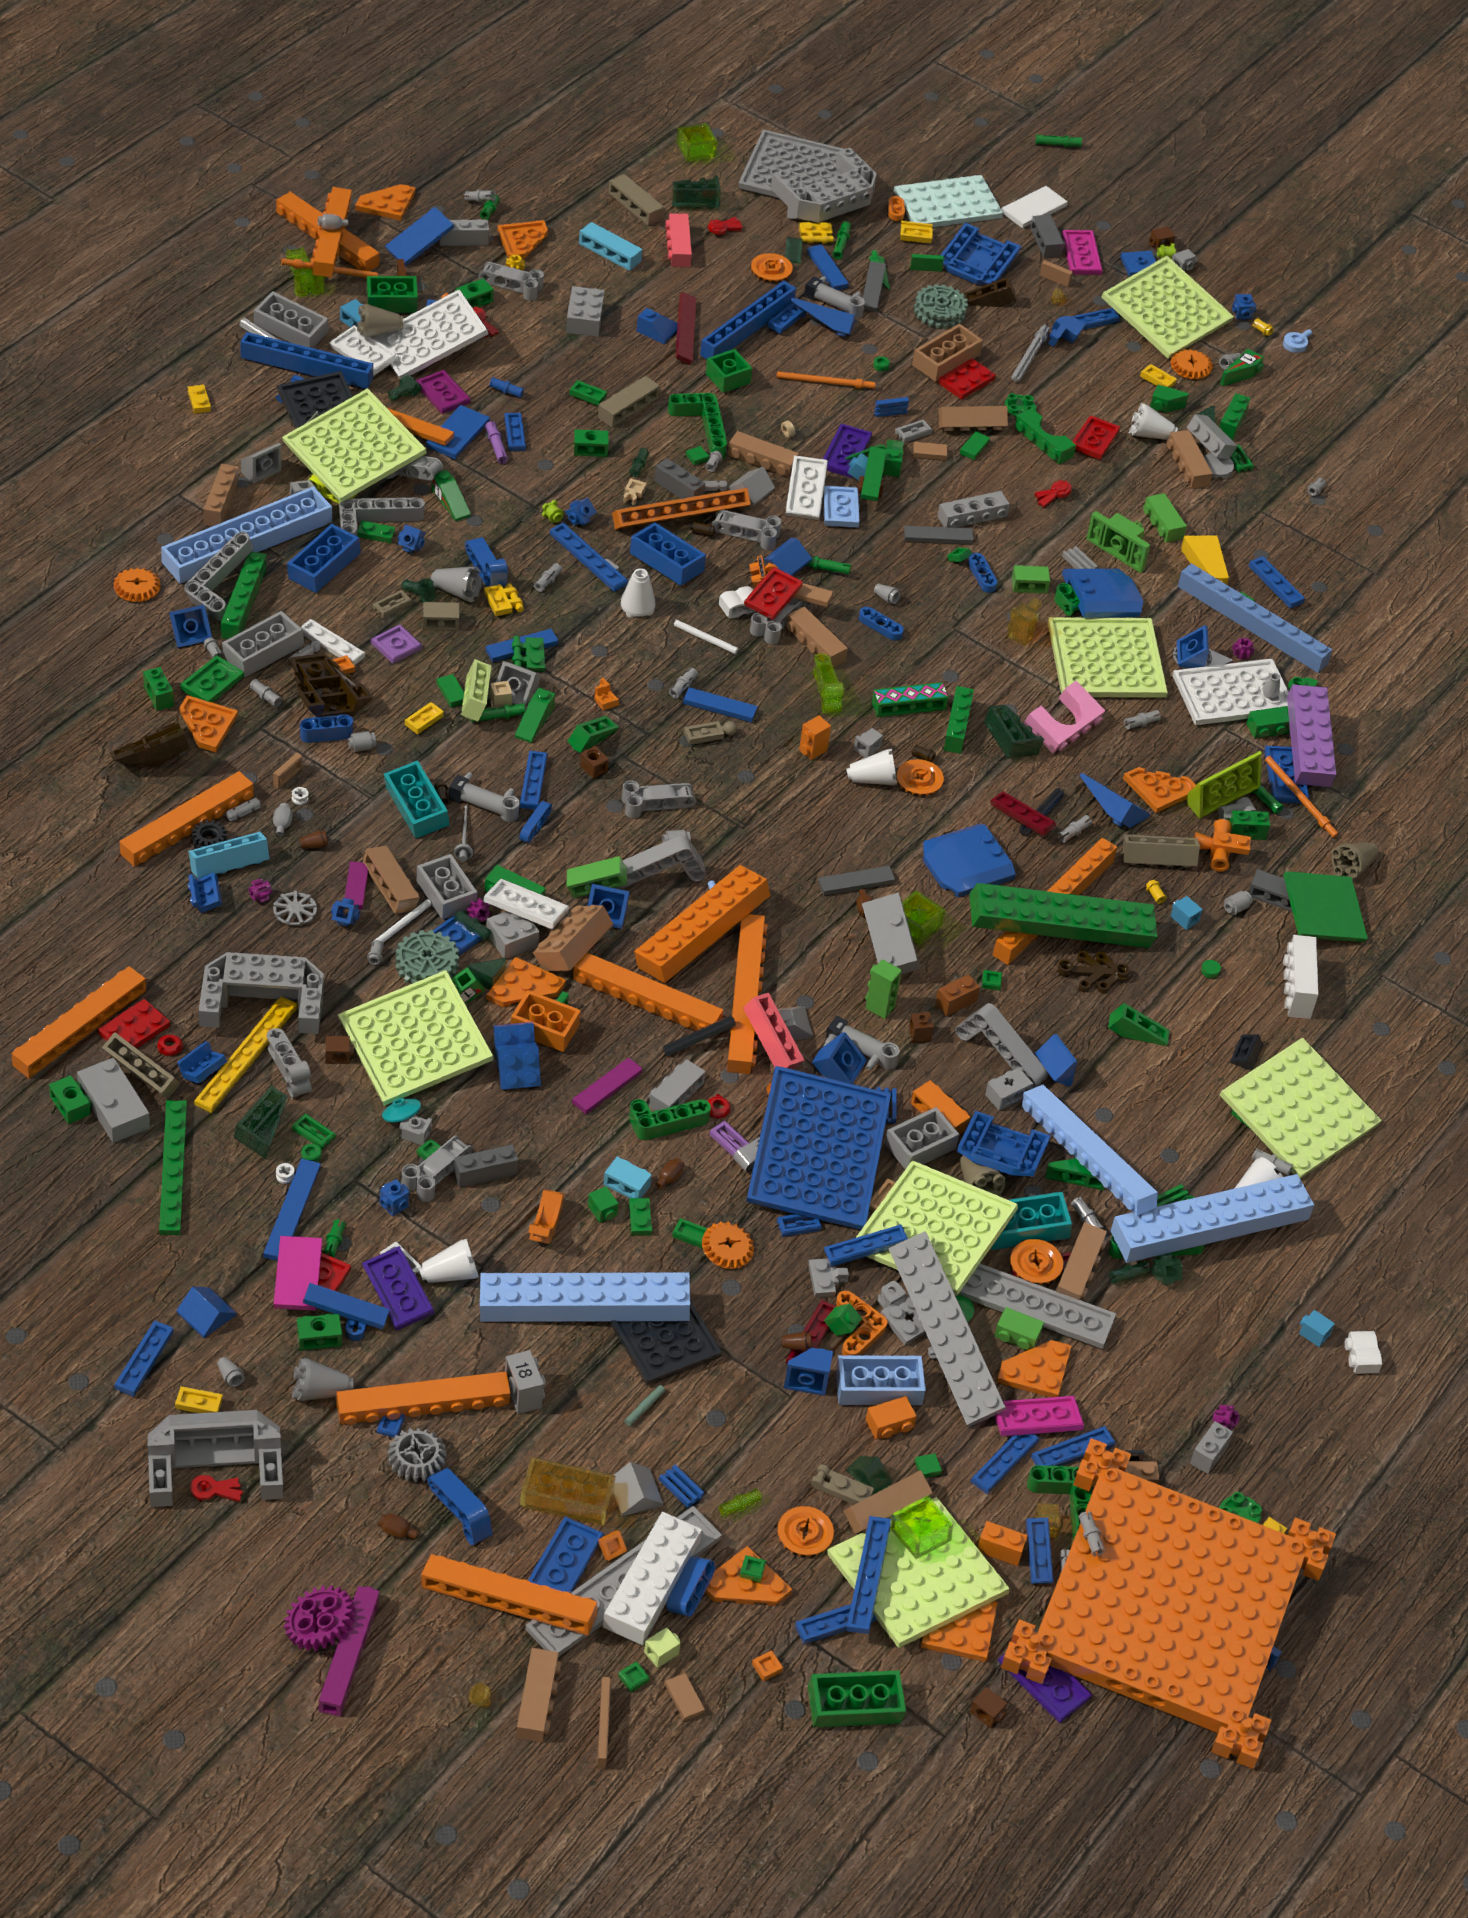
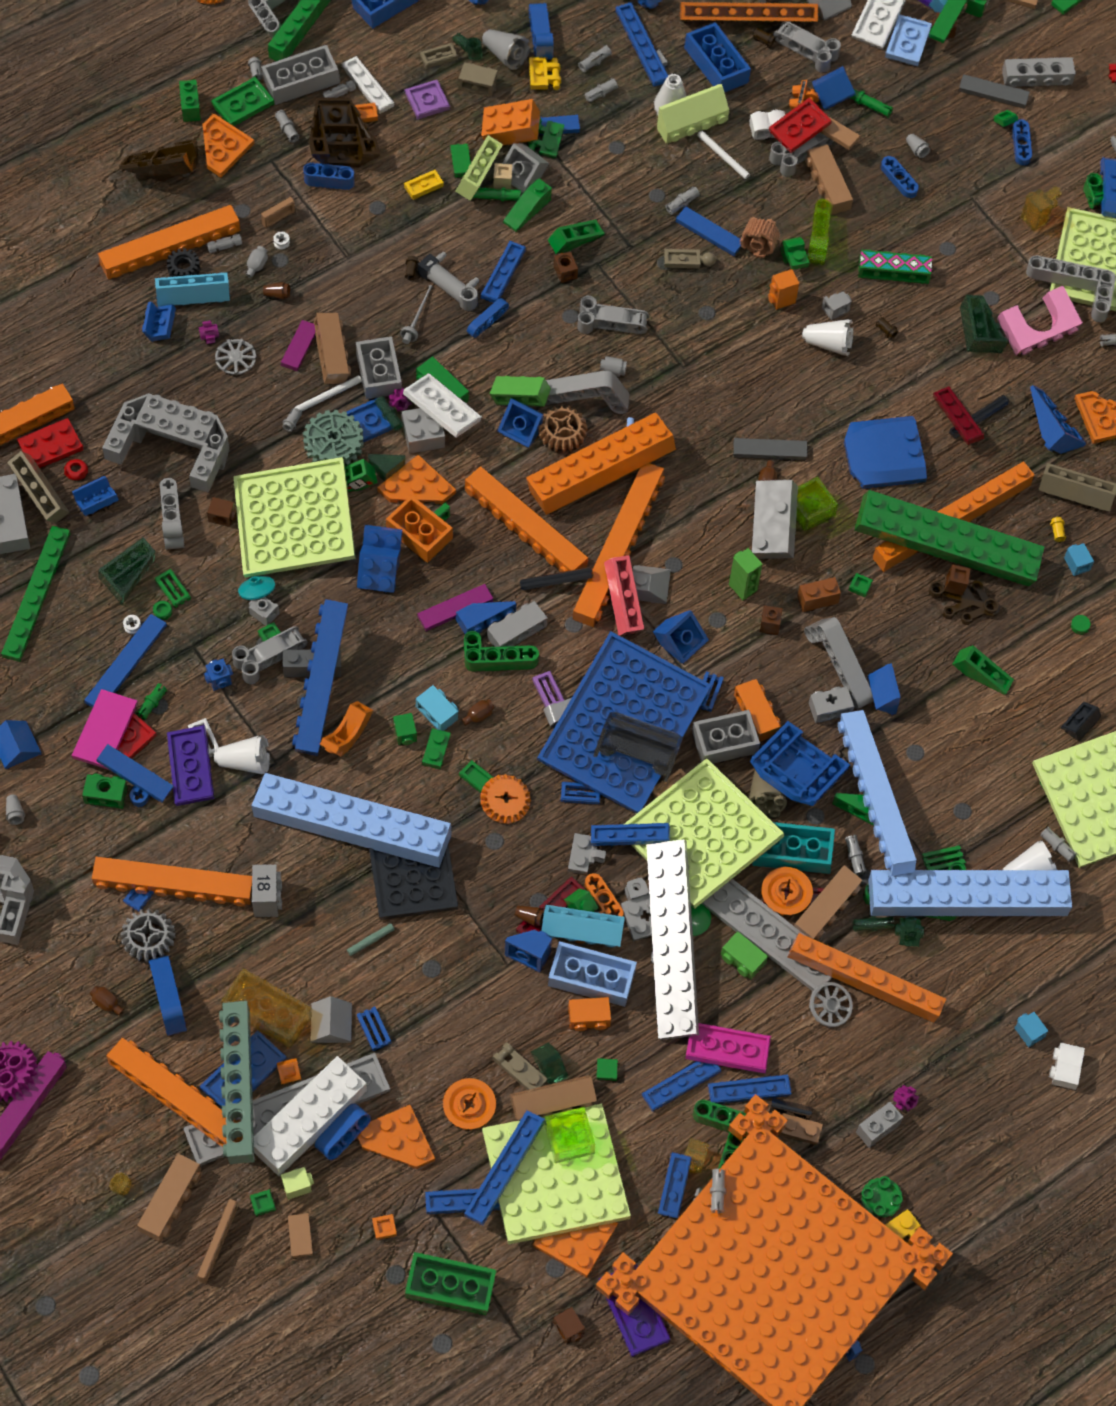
camera: 20 degrees right, 15 degrees up
(190, 625) = (241, 40): blue slope -> none
(244, 1055) = (137, 496): yellow tile -> none
(318, 1381) = (86, 841): light grey cone -> none
(338, 912) = (277, 372): blue brick -> none
(362, 741) = (356, 196): light grey brick -> none
(416, 799) = (384, 270): teal brick -> none
(492, 644) = (511, 122): none -> orange brick
(504, 1172) = (321, 677): none -> blue brick
(565, 603) = (601, 90): none -> light grey axle
(573, 938) = (474, 449): medium nougat brick -> none
(581, 1565) = (244, 1150): none -> sand green brick
(604, 696) = (602, 197): orange slope -> none
(638, 1085) = (481, 615): none -> blue slope
(650, 904) = (560, 422): none -> medium nougat gear
(664, 605) = (692, 114): none -> yellowish green slope
(719, 1113) = (550, 661): red piece -> none
(740, 1502) = (419, 1060): clear neon green pin -> none
(752, 1568) = (404, 1130): green tile -> none
(773, 697) = (760, 237): none -> nougat brick
(810, 704) = (794, 253): none -> green brick
(846, 1159) = (639, 741): none -> clear smoke windscreen
(856, 1336) = (583, 926): none -> medium azure brick
(884, 1053) = (710, 624): light grey piece -> none
(931, 775) = (876, 342): orange gear -> none
(958, 719) = (934, 299): green brick -> none
(1002, 1543) = (643, 1167): orange brick -> none
(1030, 579) = (1066, 160): bright green brick -> none
(1037, 1369) = (747, 999): orange plate -> none
(1075, 828) = (1004, 443): light grey pin -> none
(1084, 951) = (957, 579): none -> reddish brown brick
(1085, 671) = (1077, 276): none -> light grey beam
(1119, 1352) = (830, 1004): none -> light grey wheel
(1145, 1318) = (866, 977): none -> orange brick

